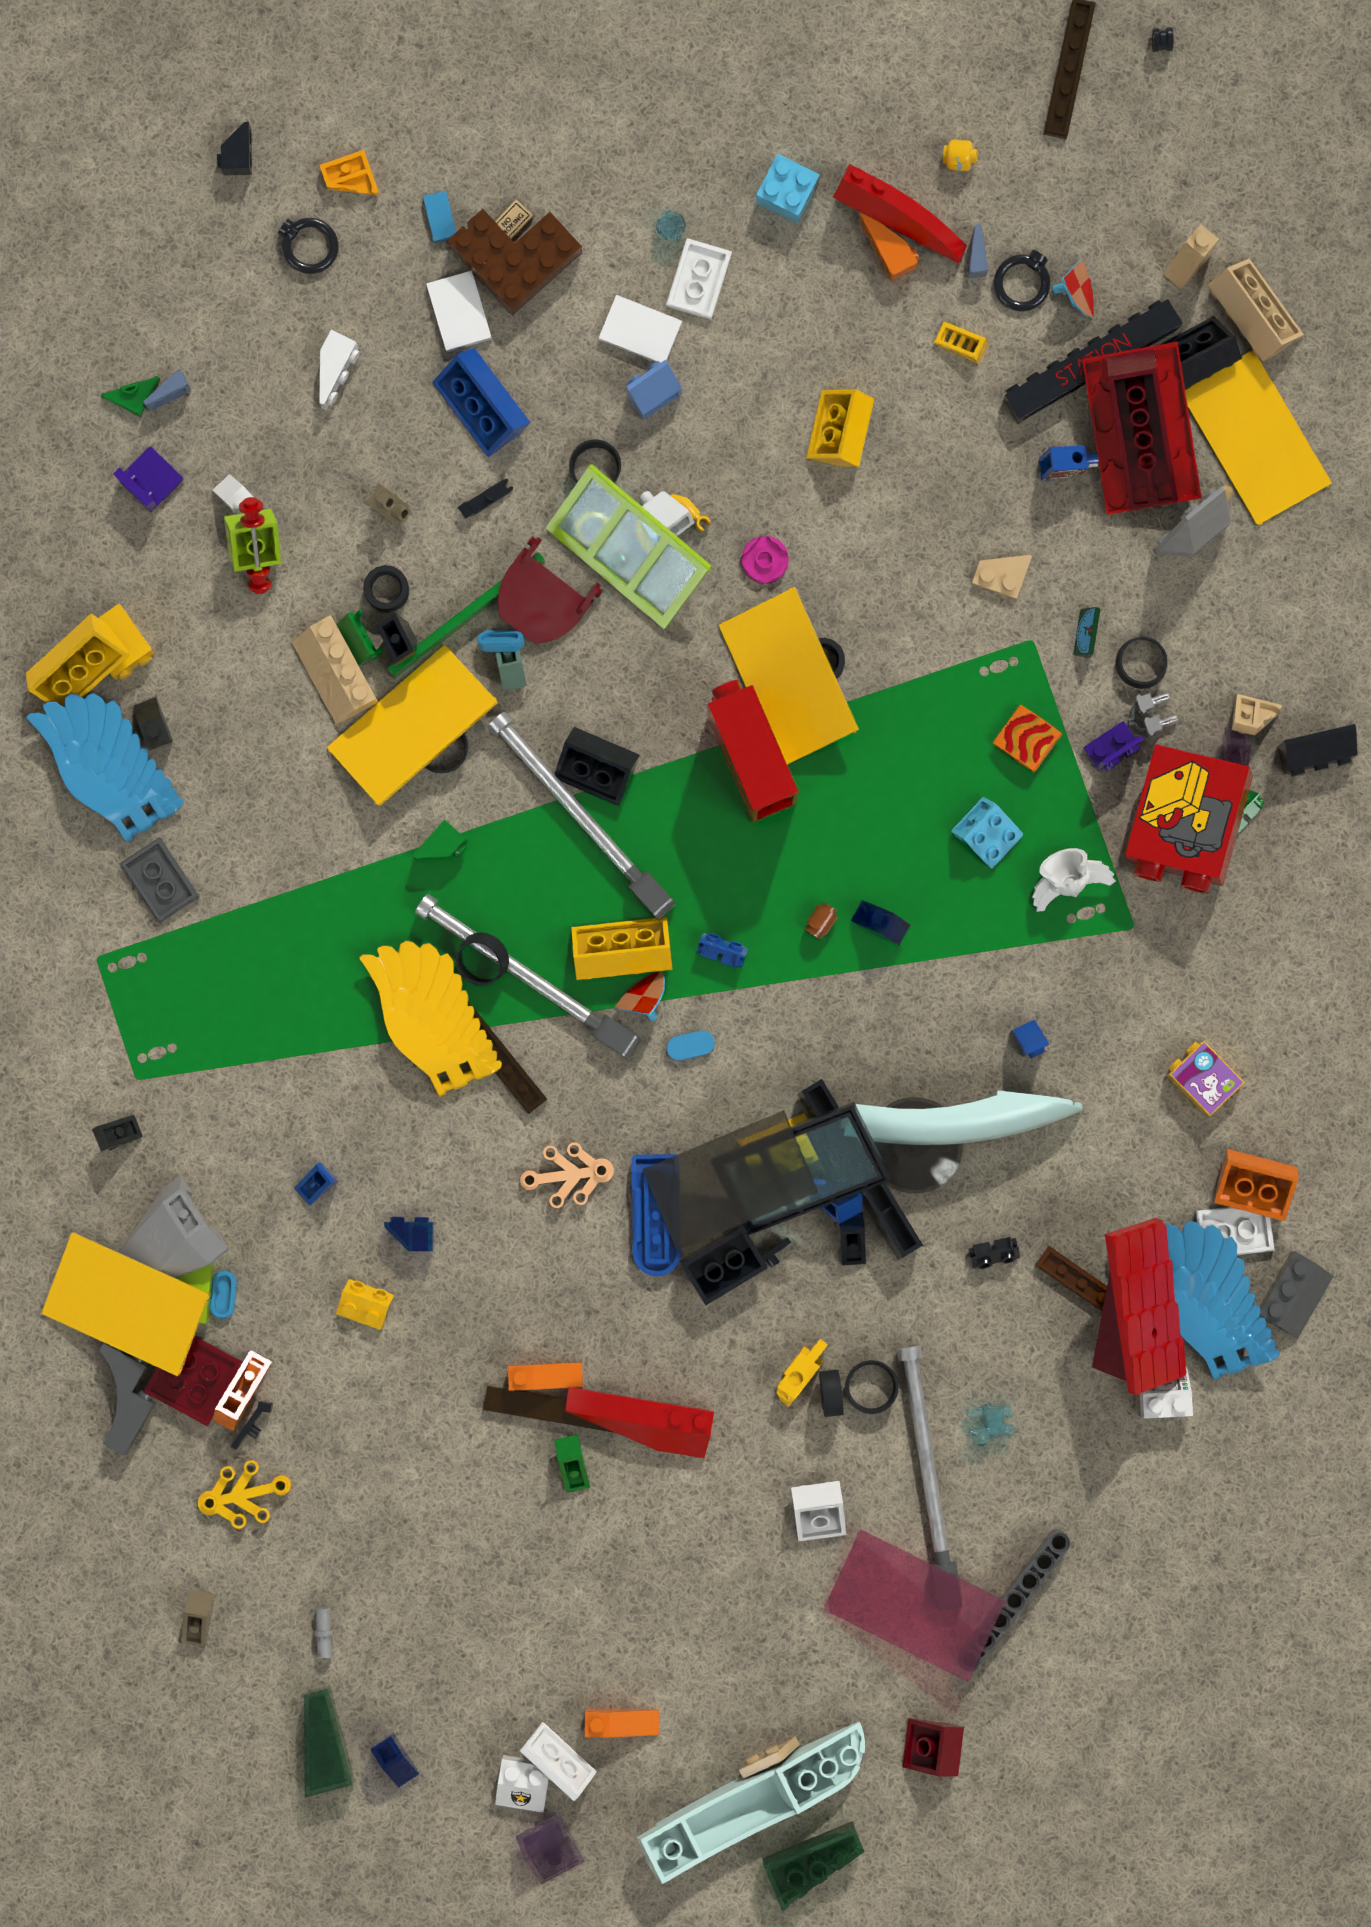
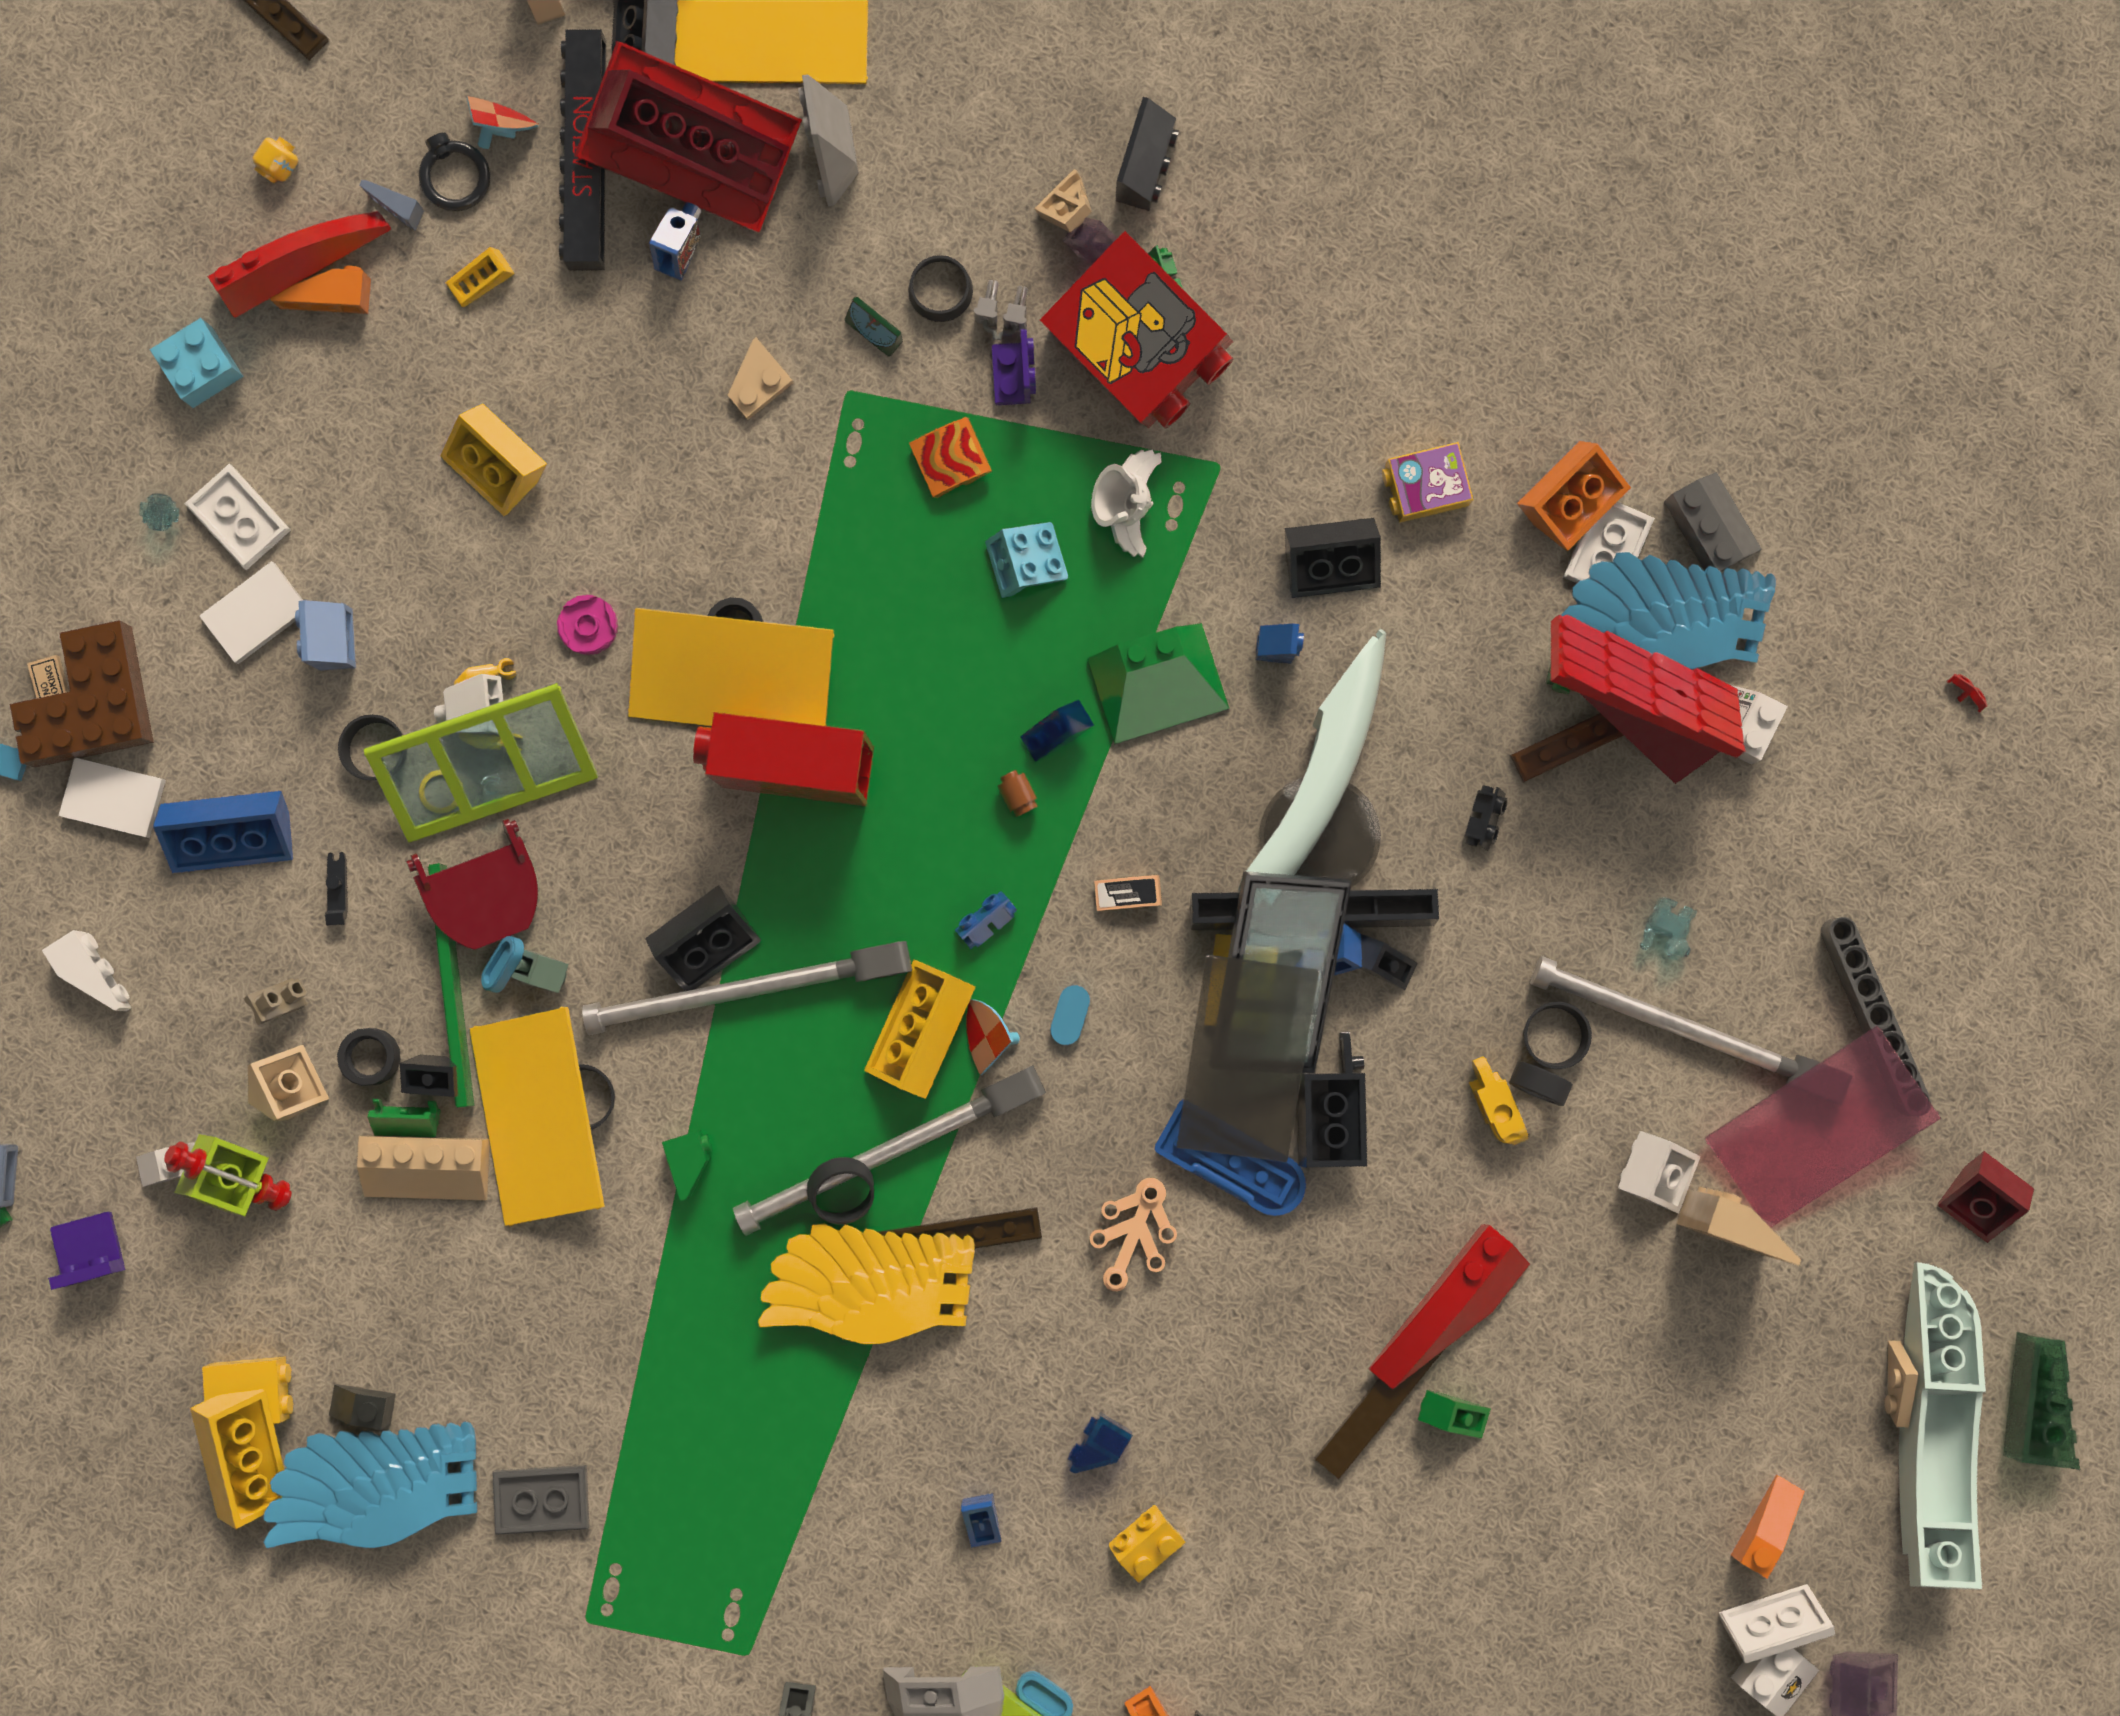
camera: 60 degrees left, 0 degrees up
(335, 544) = (285, 1084): none -> tan slope
(545, 1376) = (1340, 1389): orange slope -> none
(797, 1036) = (1128, 893): none -> slope
(810, 1568) = (1726, 1219): none -> tan slope
(955, 972) = (1157, 682): none -> green slope
(1113, 1043) = (1333, 557): none -> black slope
(1285, 1535) = (1969, 690): none -> red piece

